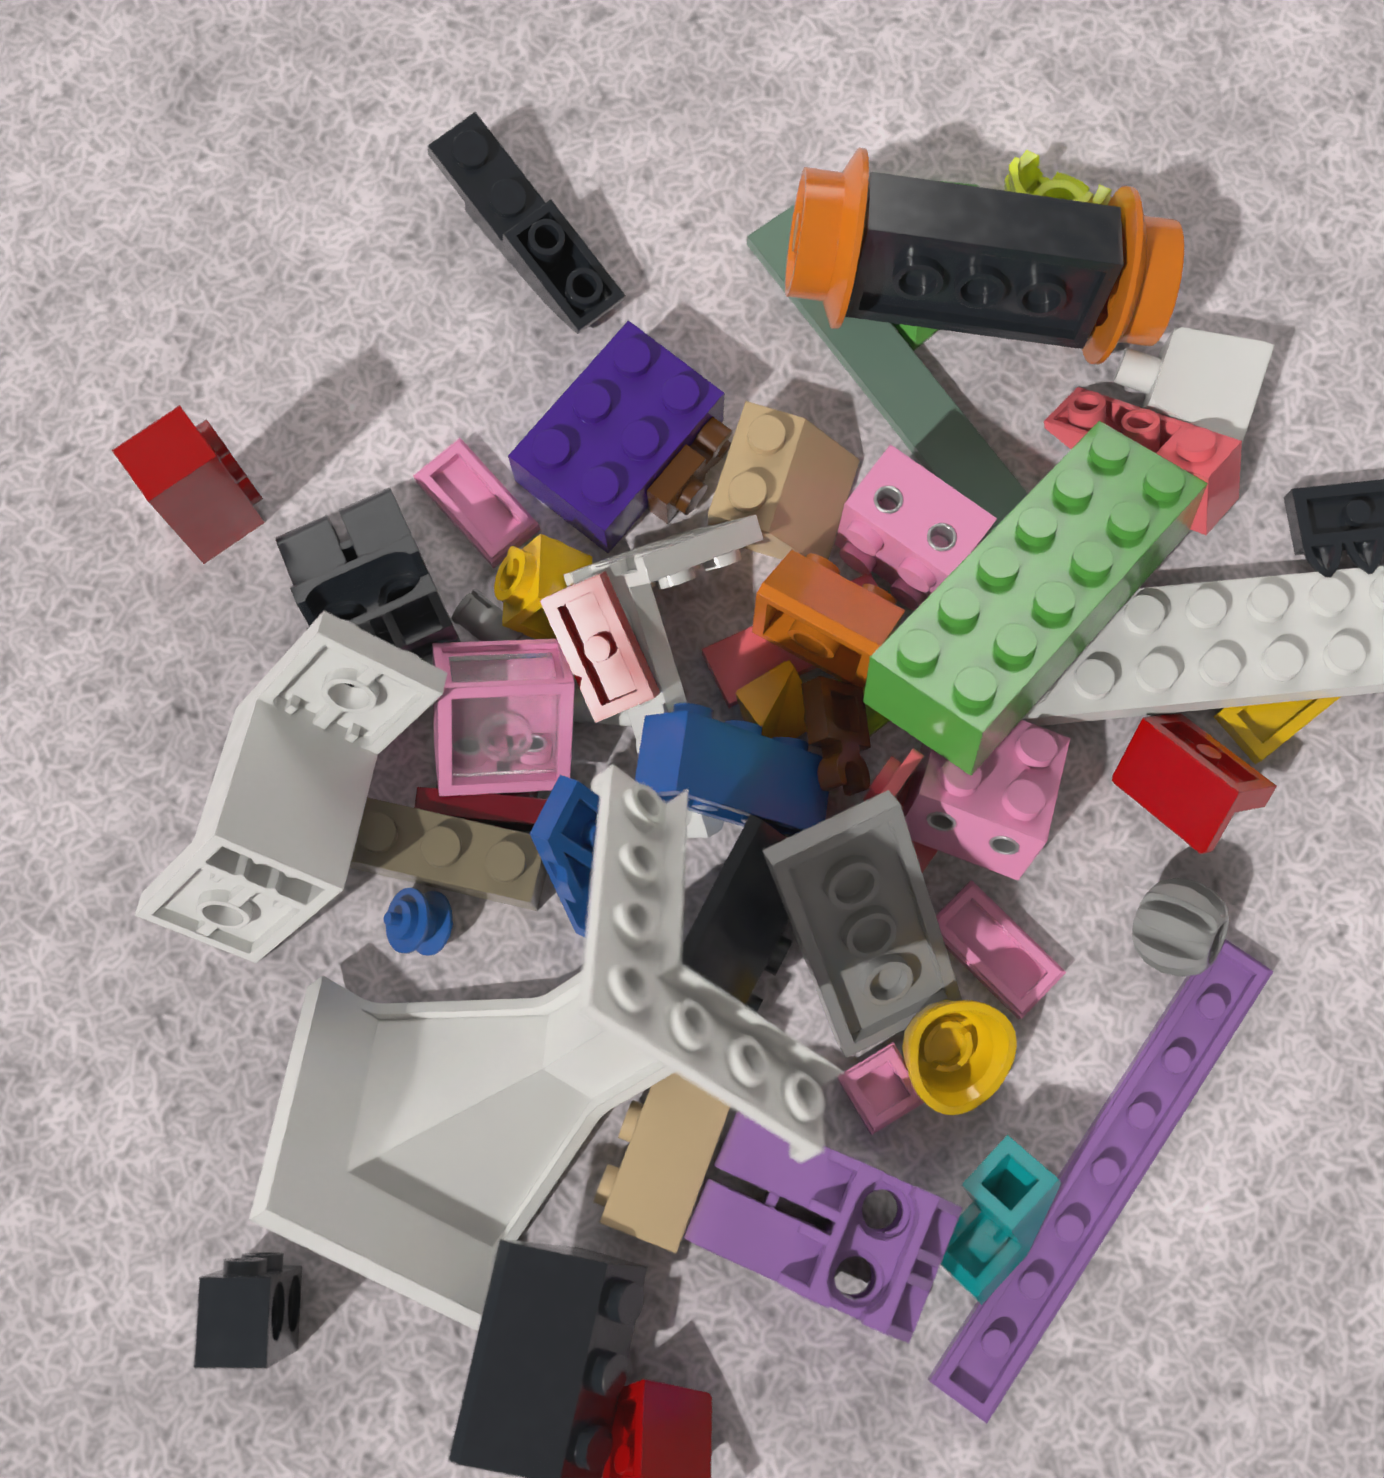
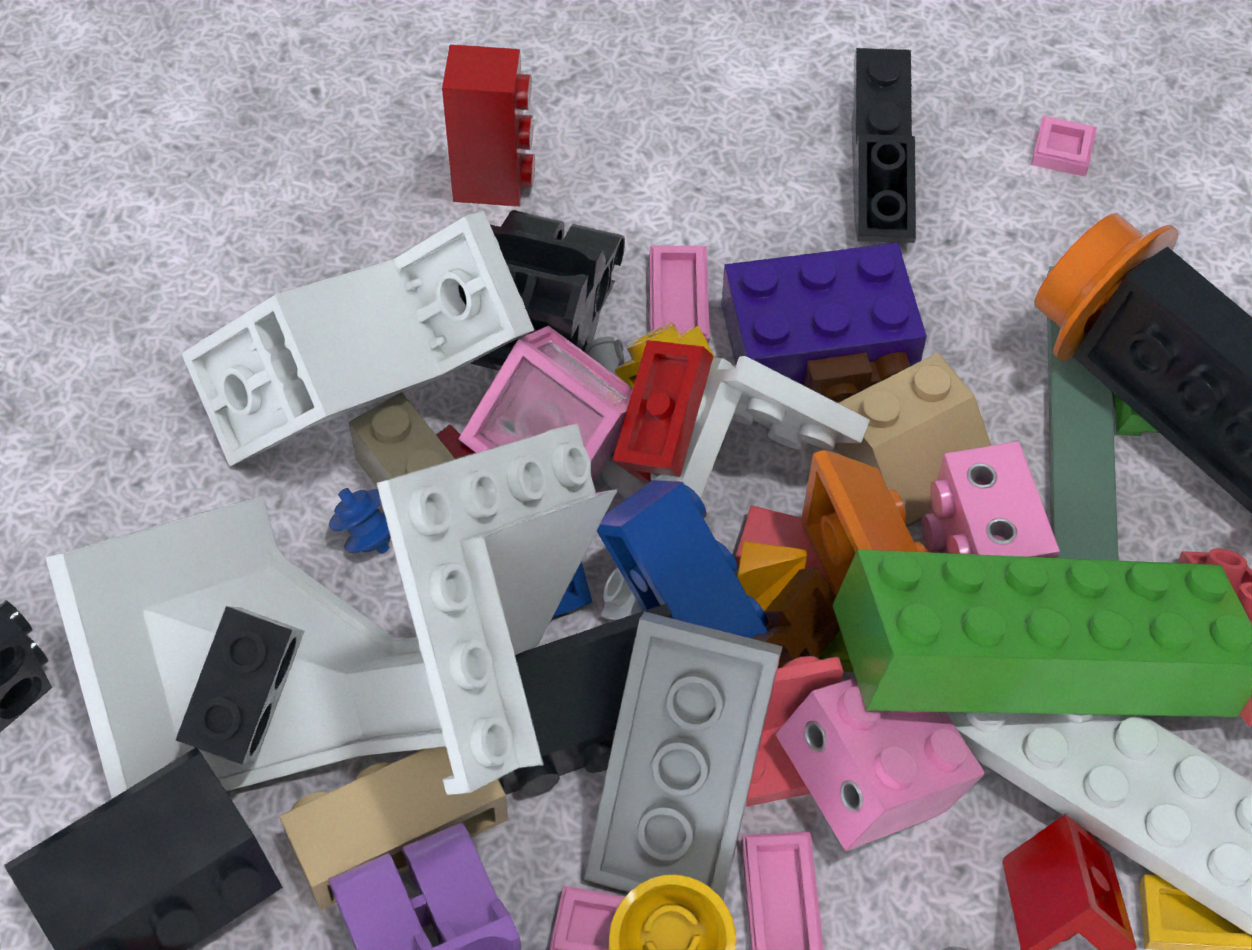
camera: 40 degrees right, 20 degrees down
(486, 1161) = (240, 685): none -> black brick
(661, 103) = (1064, 146): none -> bright pink tile

